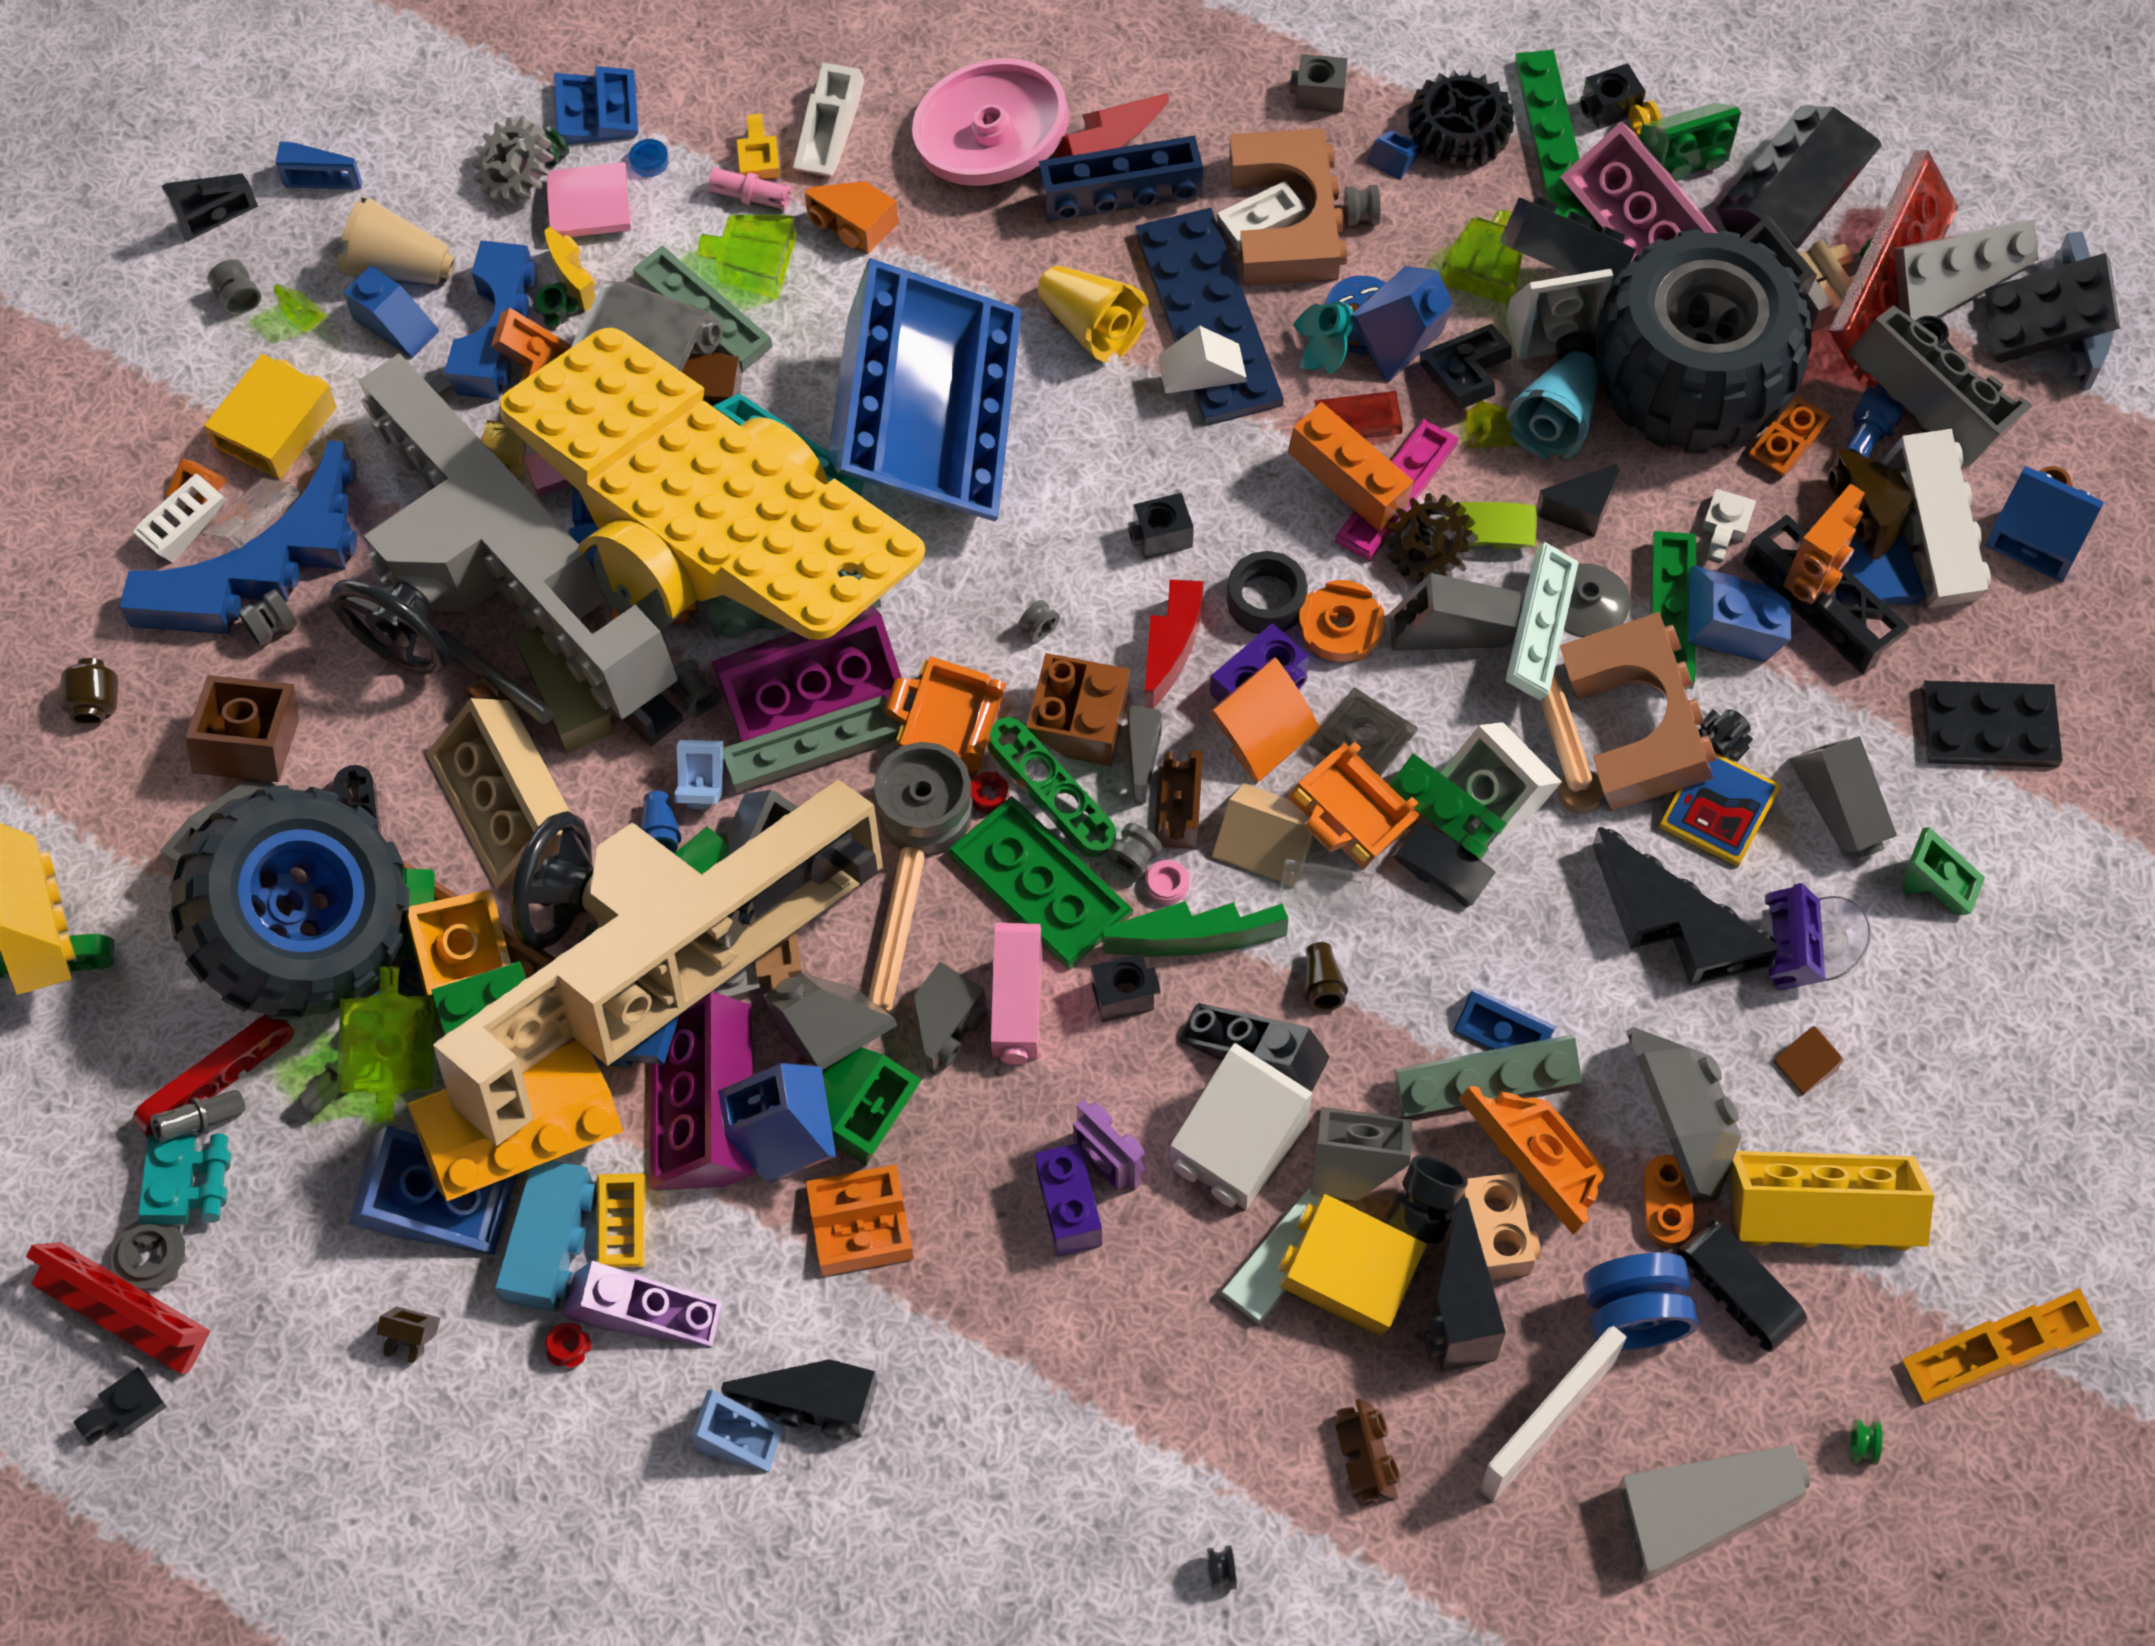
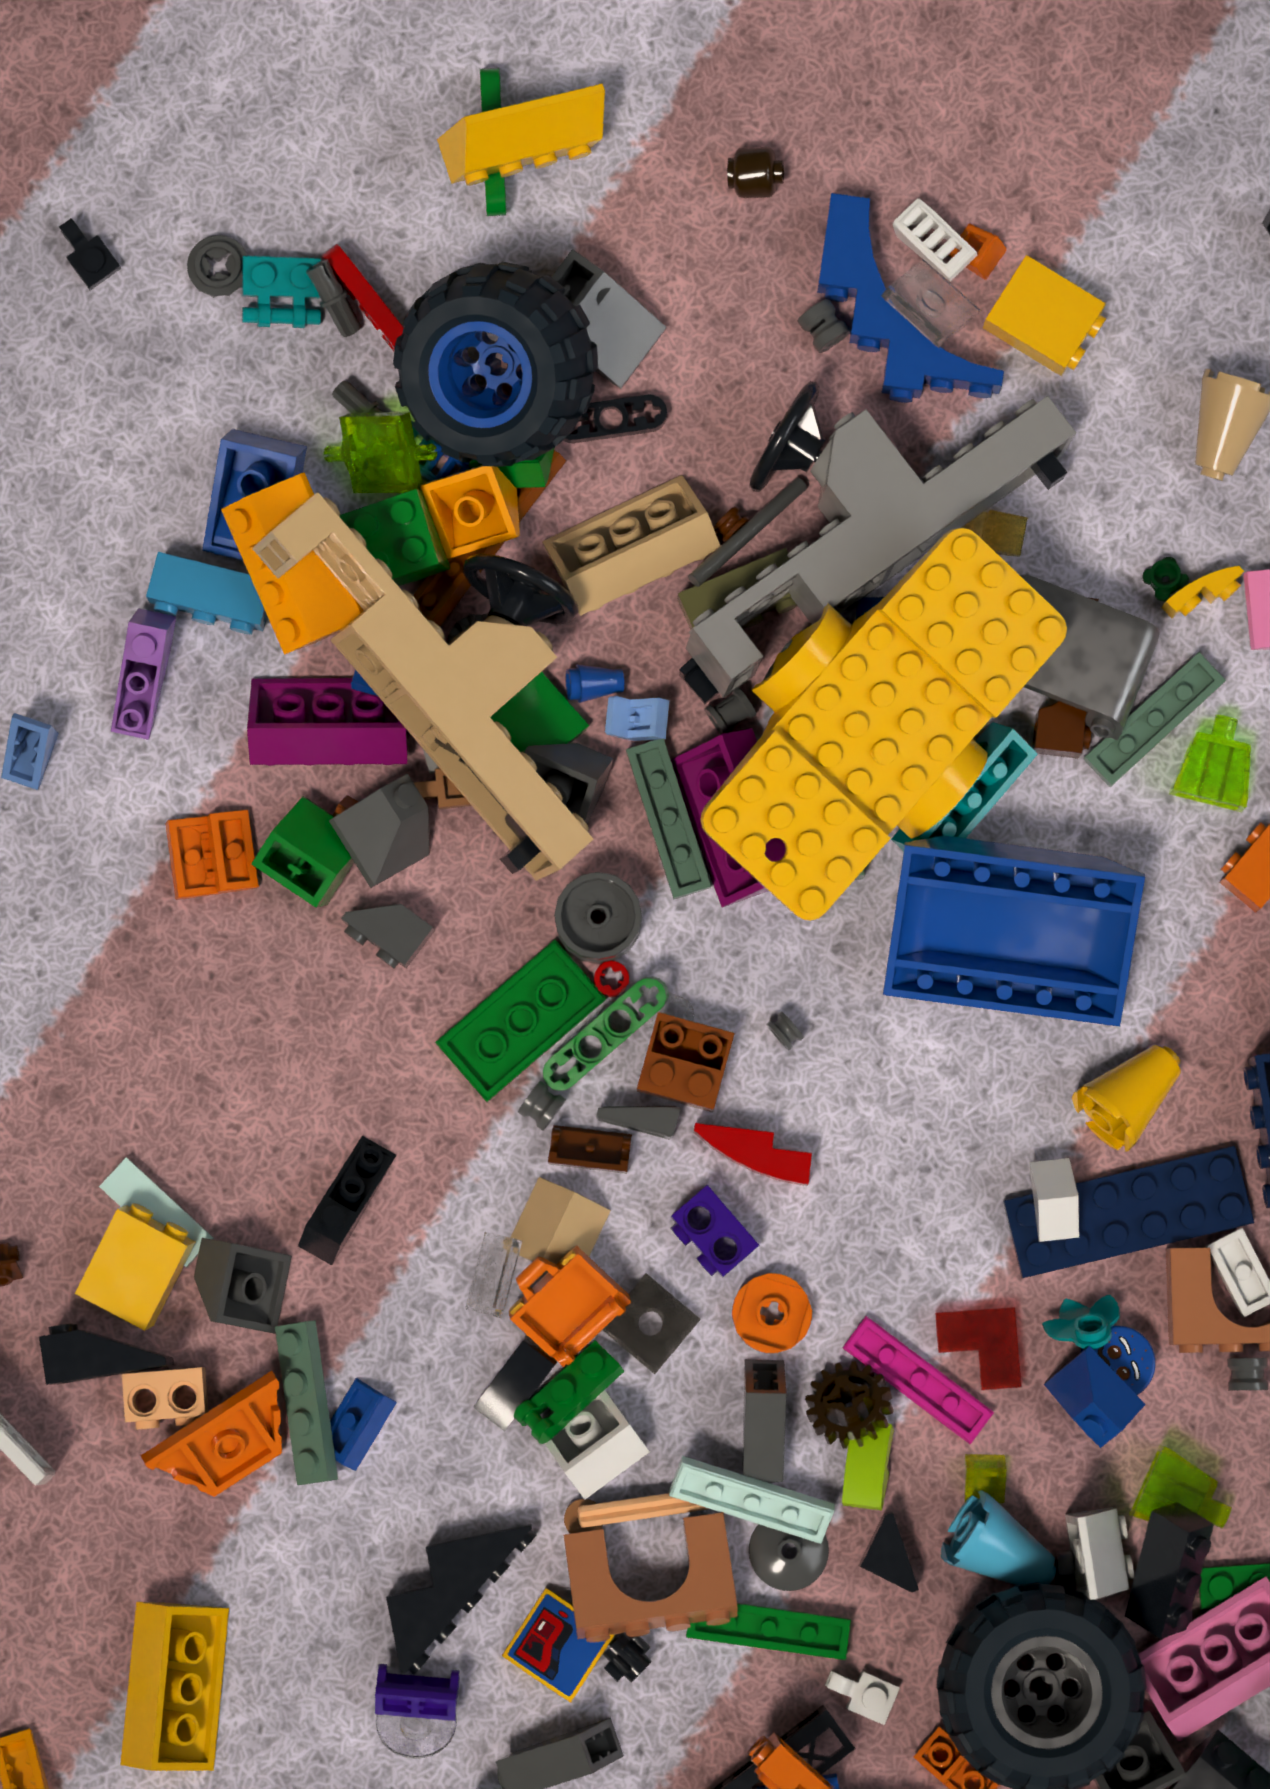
camera: 90 degrees right, 20 degrees up
(118, 1305) = (172, 245): red fence -> none
(232, 285) = (1195, 271): dark grey wheel -> none
(242, 728) = (700, 311): reddish brown brick -> none
(298, 308) = (1173, 336): clear neon green slope -> none
(389, 312) = (1157, 422): blue slope -> none
(409, 1327) = (136, 481): dark brown tile -> none
(502, 277) = (1097, 510): blue arch -> none
(526, 342) = (1094, 570): orange plate -> none
(566, 1333) = (107, 608): red plate -> none
(621, 1182) = (257, 654): yellow slope -> none
(779, 1120) = (286, 786): blue slope -> none
(813, 1393) = (56, 819): black slope -> none
(896, 927) = (480, 891): light nougat axle -> none
(950, 709) = (688, 944): orange piece -> none
(1016, 992) = (399, 993): bright pink slope -> none
(1068, 1199) = (211, 1030): dark purple brick -> none
(1109, 1153) = (249, 1062): medium lavender piece -> none
(1116, 1004) = (401, 1072): black brick -> none
(1165, 512) = (874, 1167): black brick -> none
(1167, 882) = (513, 1134): bright pink tile -> none
(1178, 933) = (458, 1139): green slope -> none
(1241, 1128) = (260, 1180): white slope -> none
(1263, 564) = (834, 1243): black tyre -> none
(1265, 720) = (663, 1231): orange slope -> none
(1323, 982) = (408, 1266): dark brown cone -> none
(1350, 466) = (924, 1332): orange brick -> none
(1427, 1198) = (186, 1335): black wheel -> none
(1460, 364) = (1052, 1449): black plate -> none
(1641, 1299) = (80, 1506): blue wheel -> none
(1664, 1199) = (184, 1547): orange plate -> none
(1692, 1109) = (261, 1569): dark grey wedge -> none
(1736, 615) = (757, 1686): blue slope -> none
(1743, 1284) = (100, 1599): black beam -> none
(1809, 1060) = (304, 1688): dark orange slope -> none

